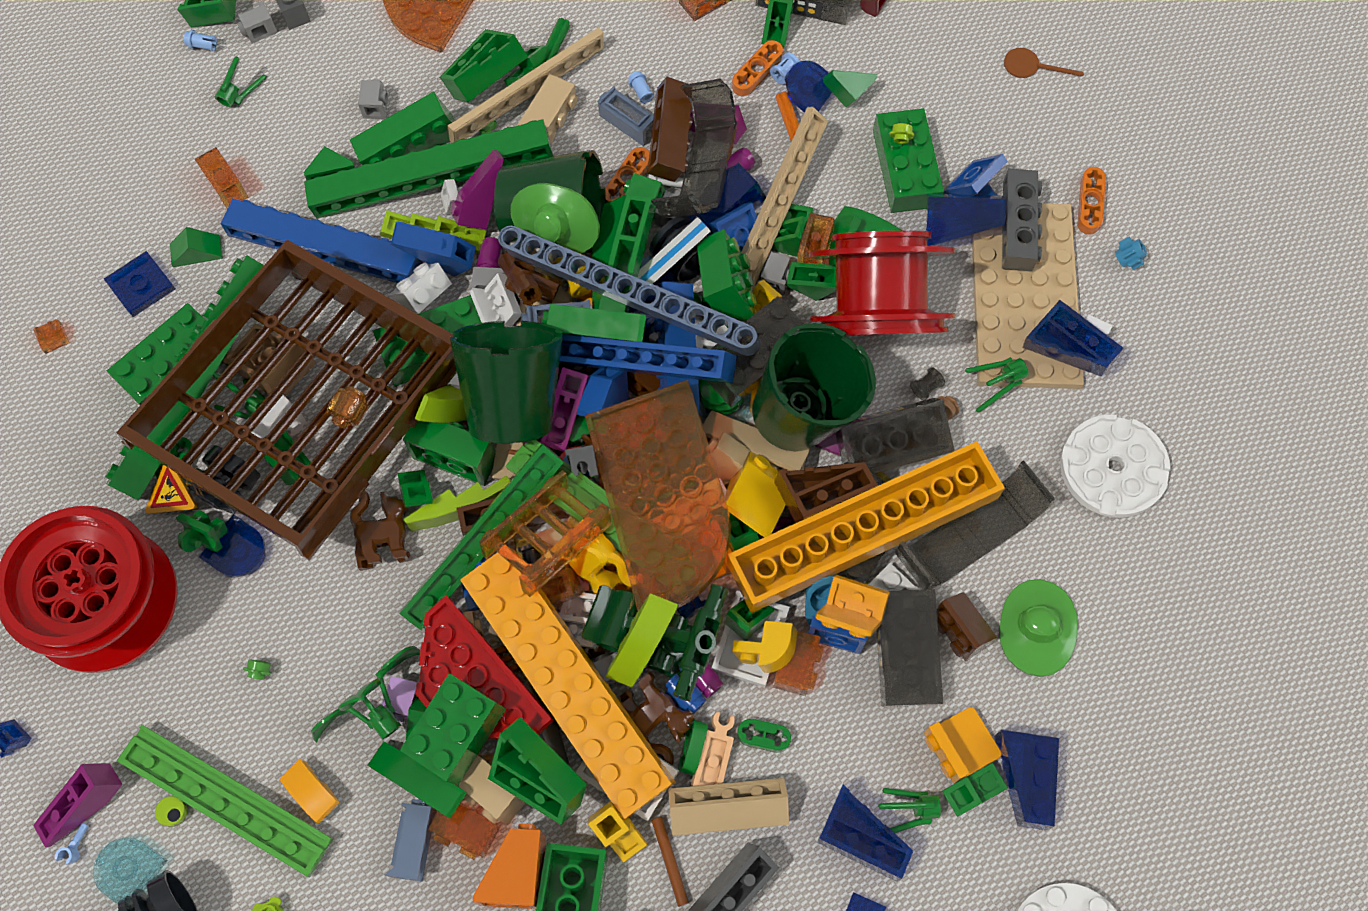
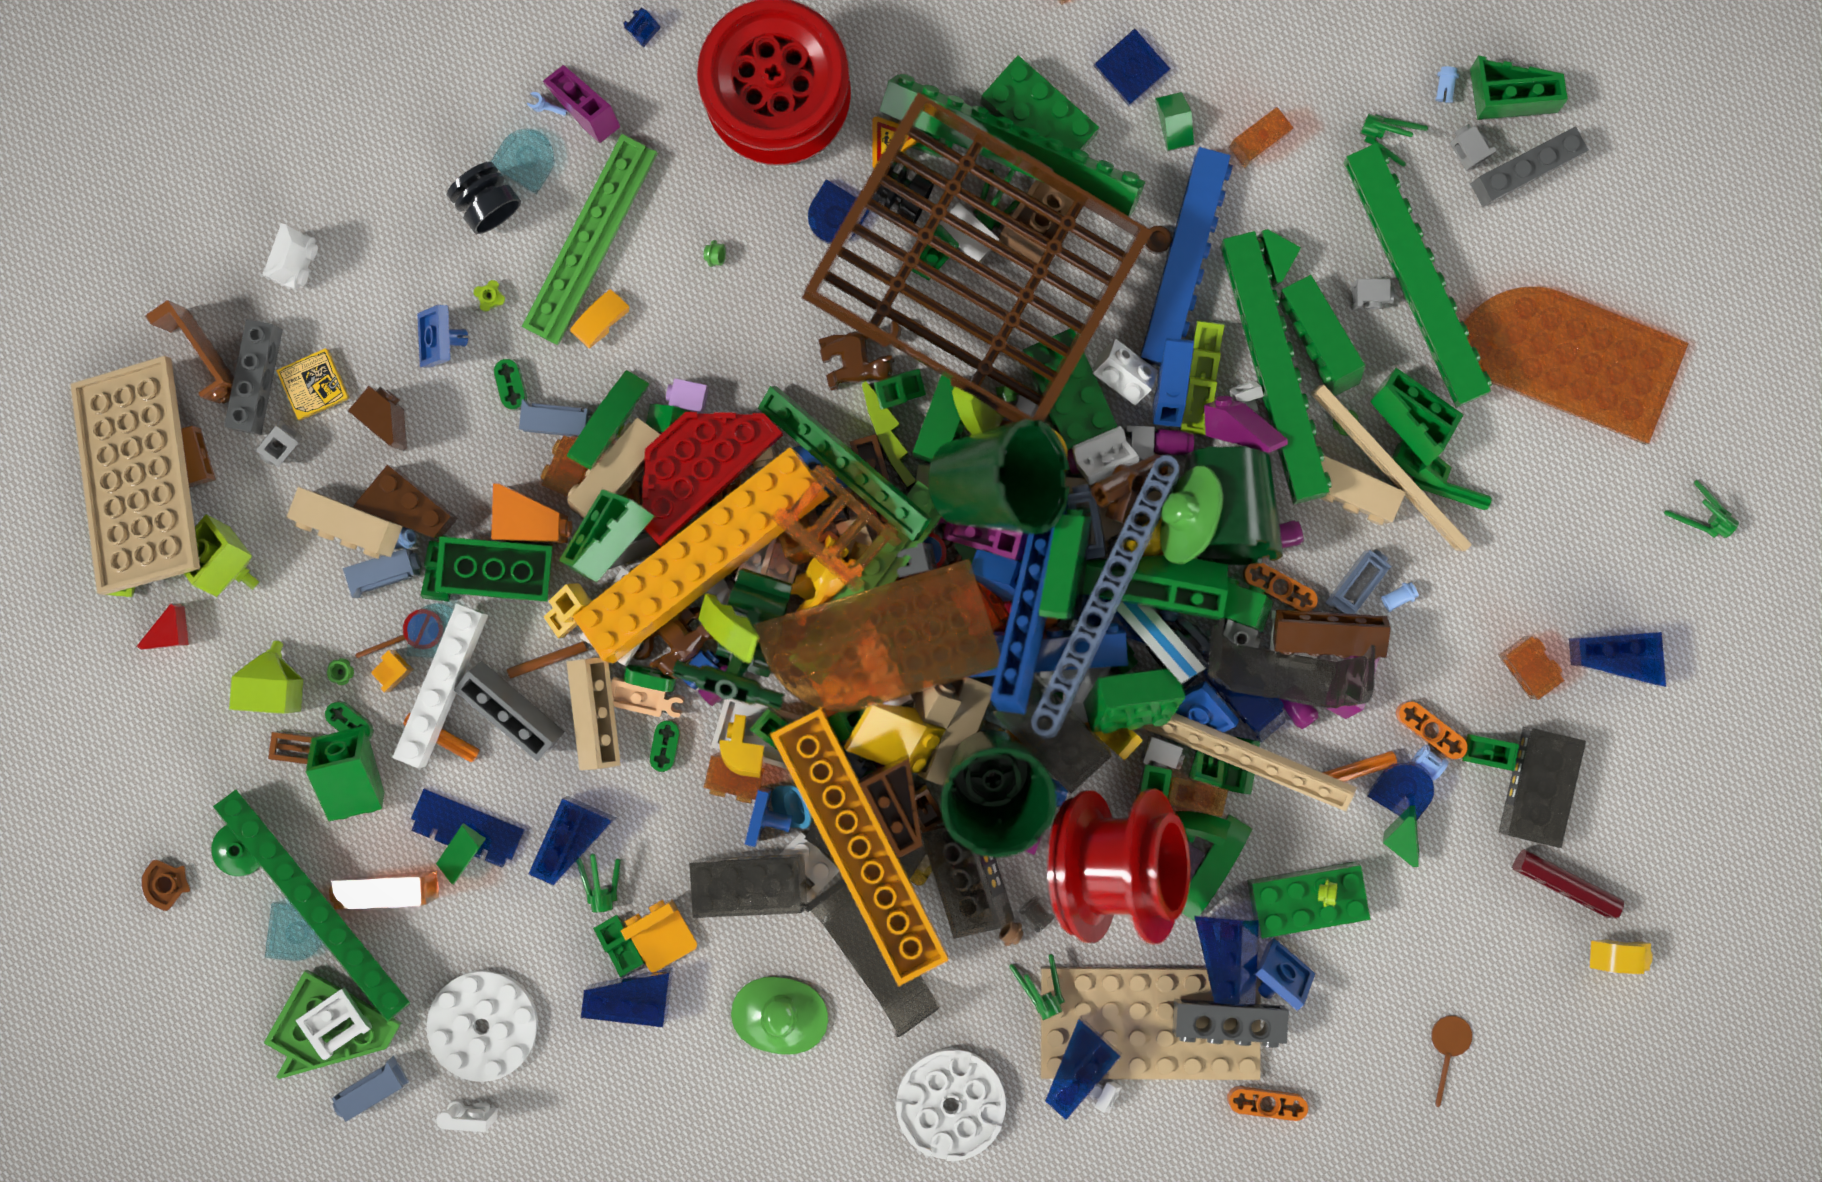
camera: 90 degrees right, 20 degrees up
(171, 811) = (578, 190): lime tile -> none
(200, 531) = (846, 175): green hips -> none
(347, 407) = (964, 317): clear orange head -> none
(359, 62) = (1417, 275): none -> green brick
(368, 886) = (504, 387): none -> green beam
(380, 718) = (666, 369): green plant -> none
(452, 729) = (646, 452): green brick -> none
(854, 607) = (773, 831): light orange bracket -> none
(964, 626) = (774, 942): reddish brown slope -> none
(1131, 253) = (1198, 1141): dark azure gear -> none

